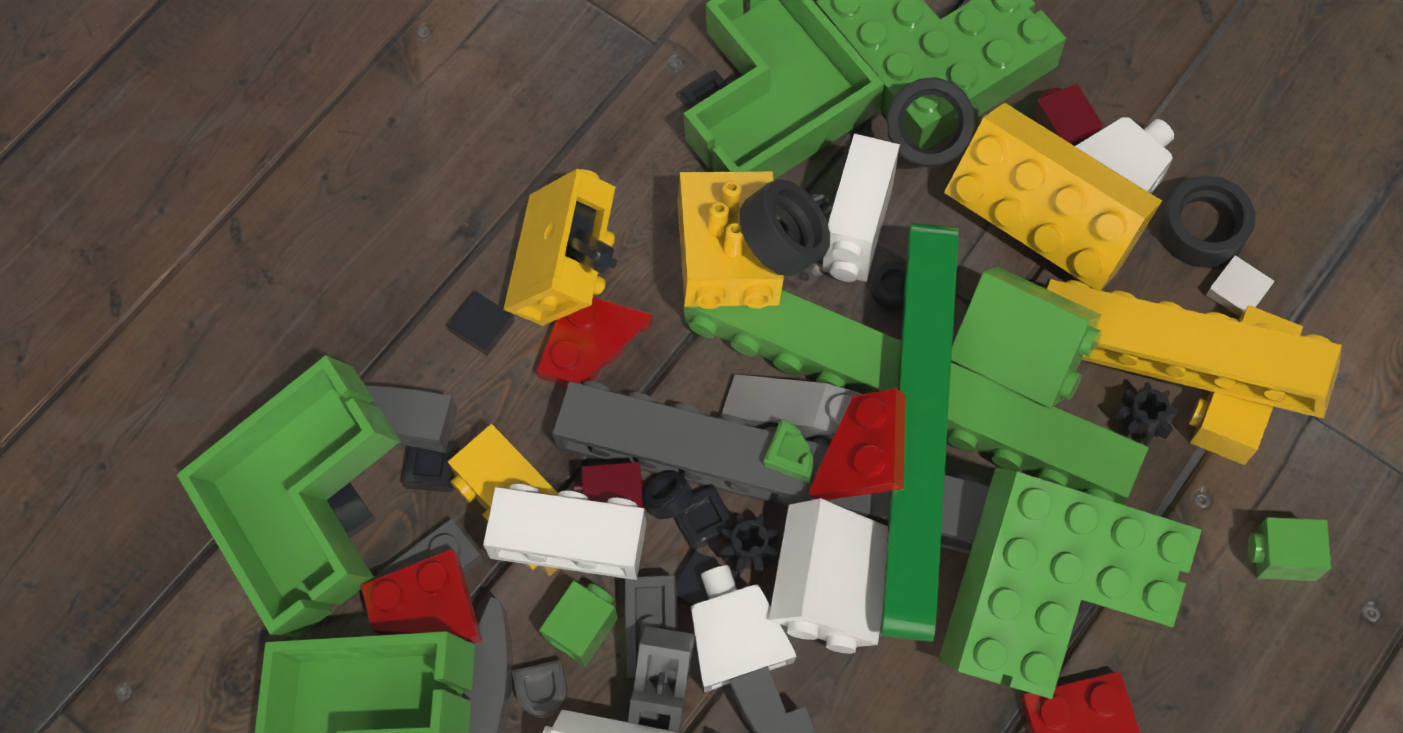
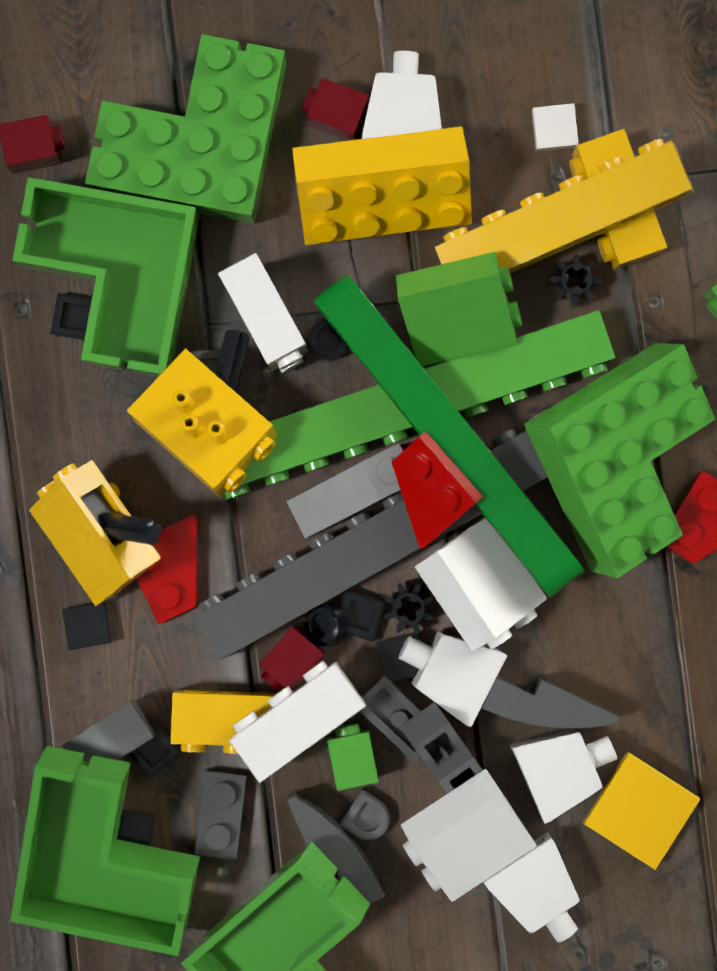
camera: 45 degrees left, 20 degrees up
(423, 600) = (249, 842): red wing -> none
(768, 238) = (230, 411): black tyre -> none
(790, 453) = (382, 530): bright green tile -> none
(925, 87) = (283, 230): black tyre -> none
(1220, 193) = (501, 67): black tyre -> none

